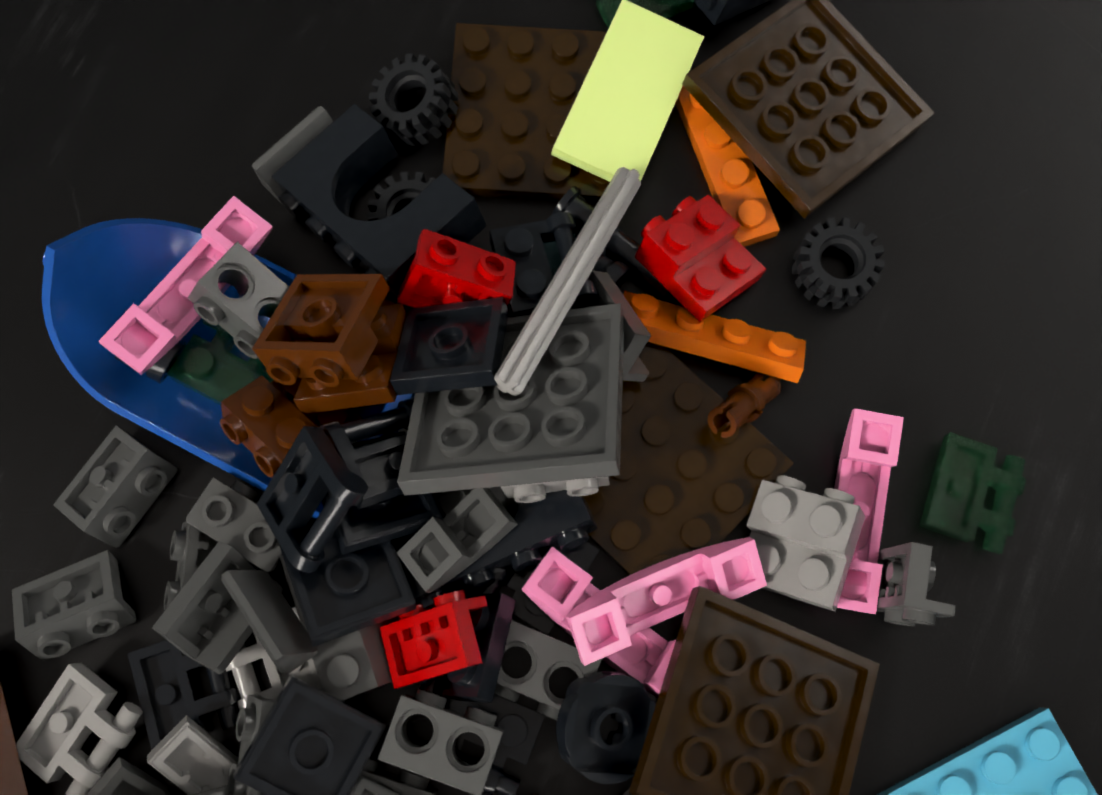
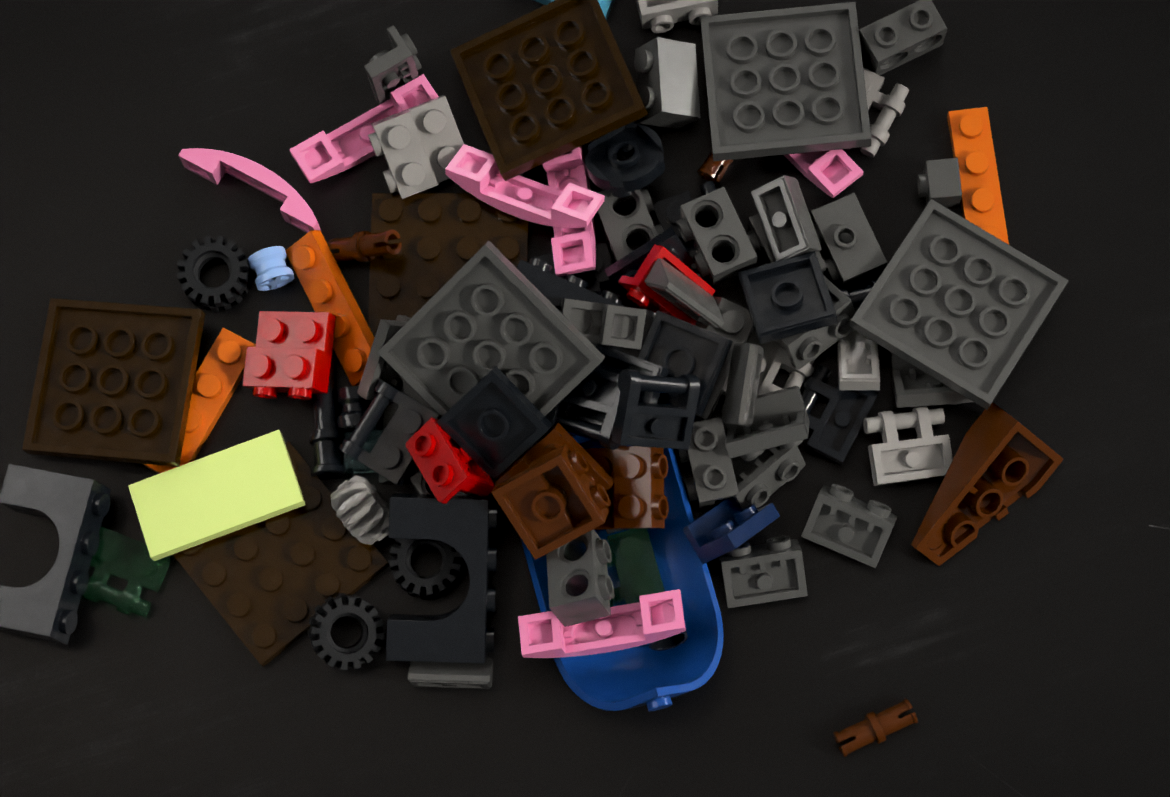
camera: 125 degrees left, 0 degrees up
(161, 481) = (727, 527): none -> dark blue bracket
(406, 646) = (684, 294): none -> dark grey slope
(503, 192) = (361, 509): none -> light grey gear
(567, 283) = (385, 396): light grey axle -> none
(799, 312) = (270, 268): none -> light blue wheel
(841, 382) = (215, 163): none -> bright pink slope
(960, 489) = (299, 88): clear green plate -> none

